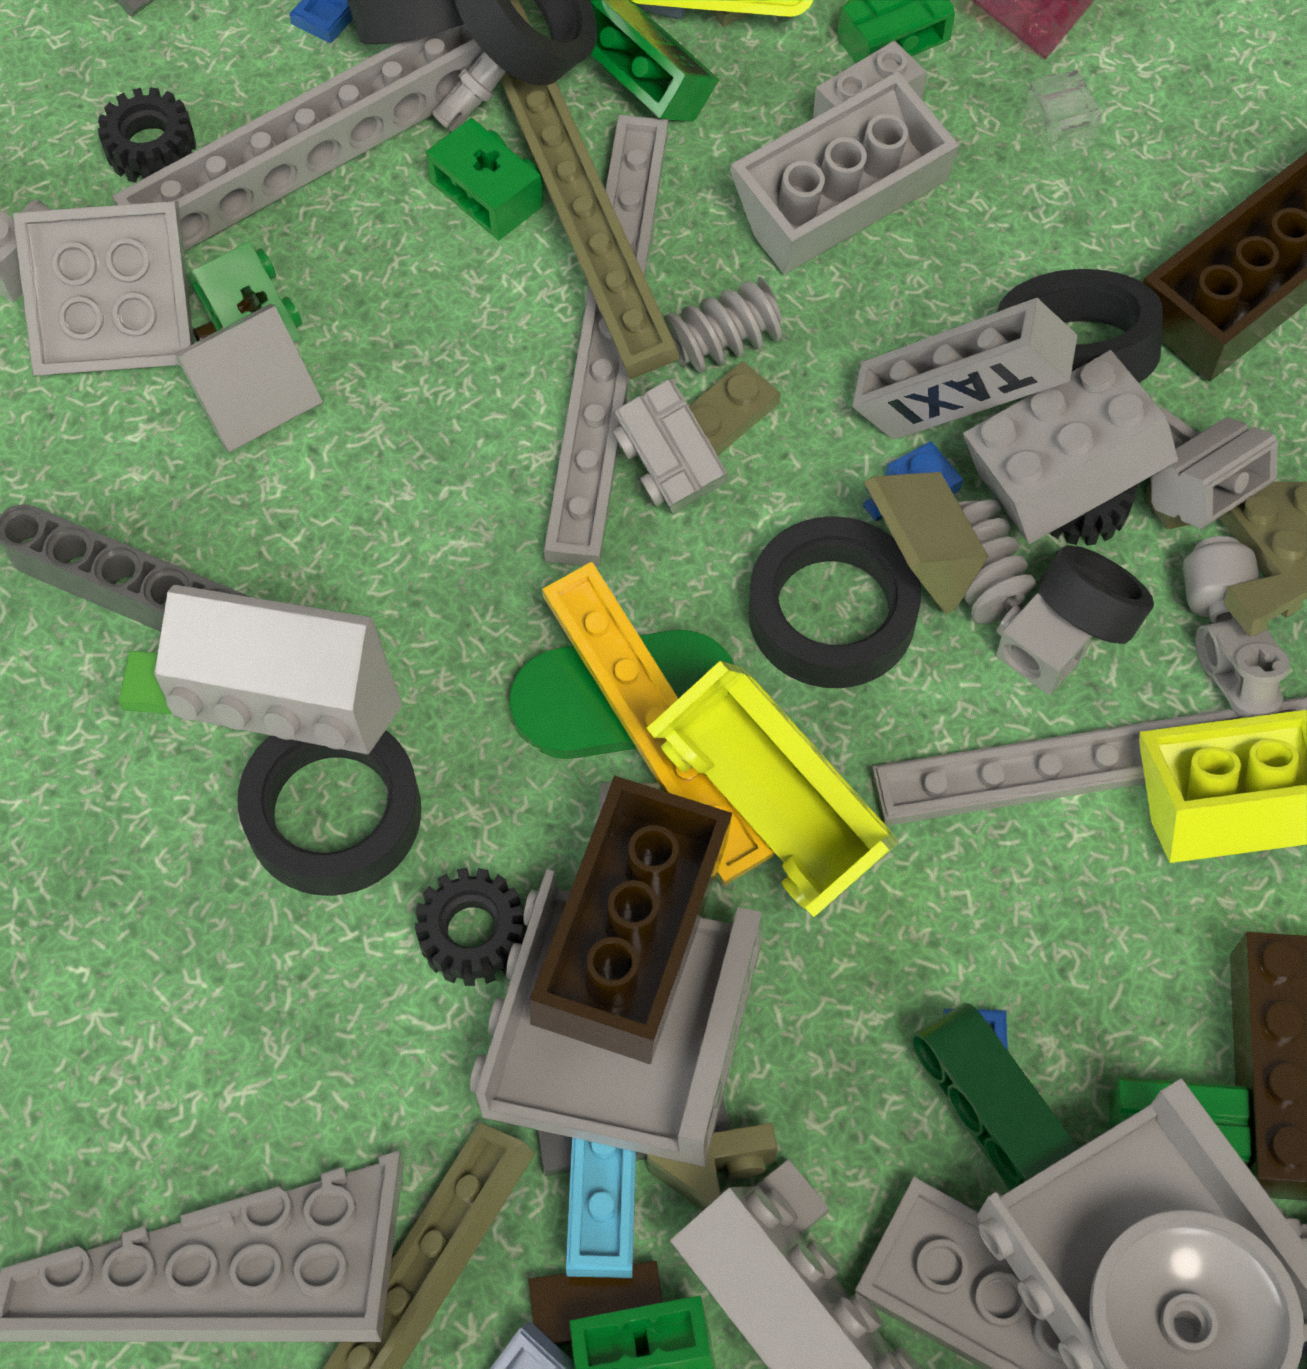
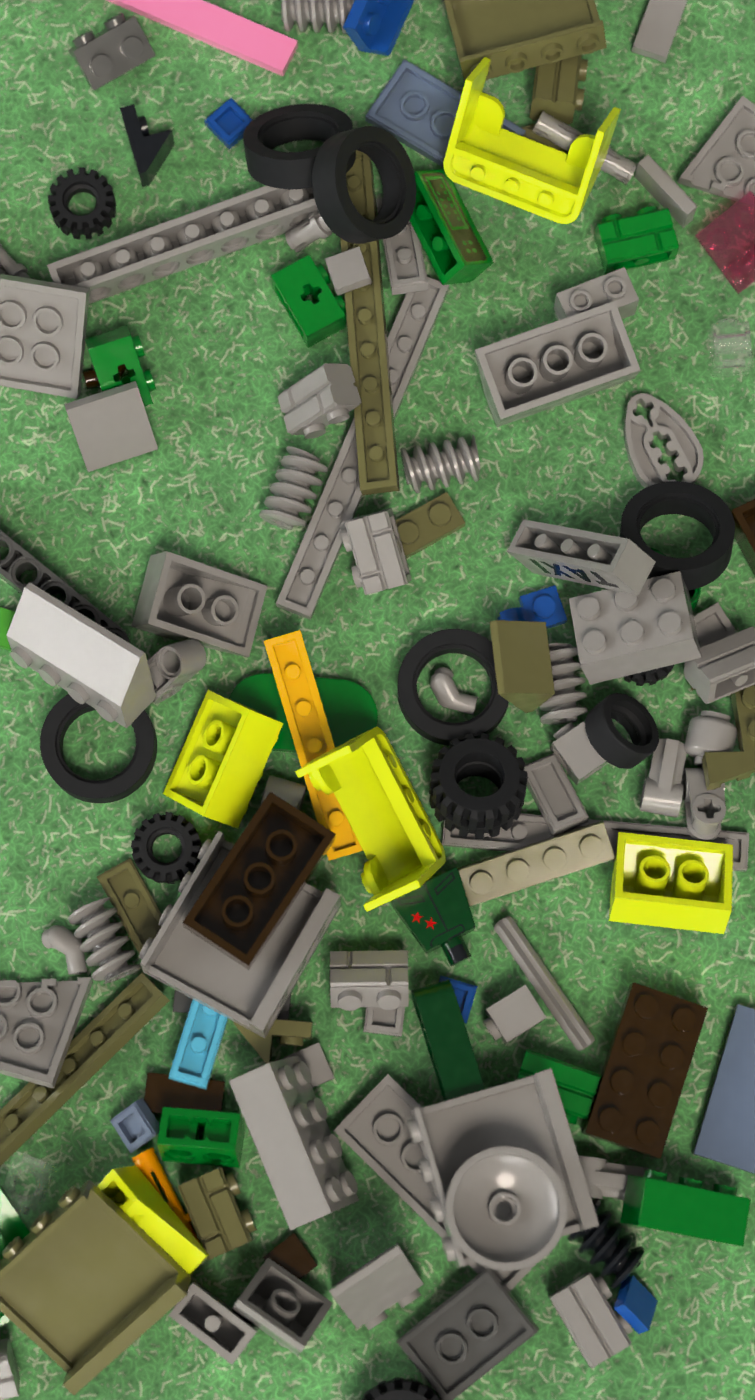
camera: 15 degrees right, 15 degrees up
(221, 55) = (147, 149): none -> black slope
(351, 1110) = (66, 942): none -> light grey arm
(403, 1090) = (102, 941): none -> light grey piece
(421, 673) = (175, 666): none -> light grey piece
(433, 577) = (199, 603): none -> light grey slope
(437, 1024) = (133, 902): none -> olive tile
(525, 773) = (222, 759): none -> neon yellow slope
(528, 403) = (292, 489): none -> light grey piece
(530, 122) = (348, 270): none -> light grey tile
(534, 278) = (319, 400): none -> light grey brick
(599, 100) = (404, 260): none -> light grey tile
(828, 616) = (448, 694): none -> light grey arm
(840, 1037) = (369, 979): none -> light grey brick
(877, 1092) = (384, 1021): none -> light grey tile
(912, 750) = (483, 759): none -> black tyre
(913, 919) = (438, 915): none -> dark green torso
(1007, 220) = (667, 425): none -> light grey piece
(1026, 710) = (554, 795): none -> light grey tile
(1033, 809) = (536, 863): none -> plate
(1078, 1036) = (513, 1015): none -> light grey brick
(1105, 982) = (544, 983): none -> light grey axle
(1176, 661) = (663, 787): none -> light grey piece

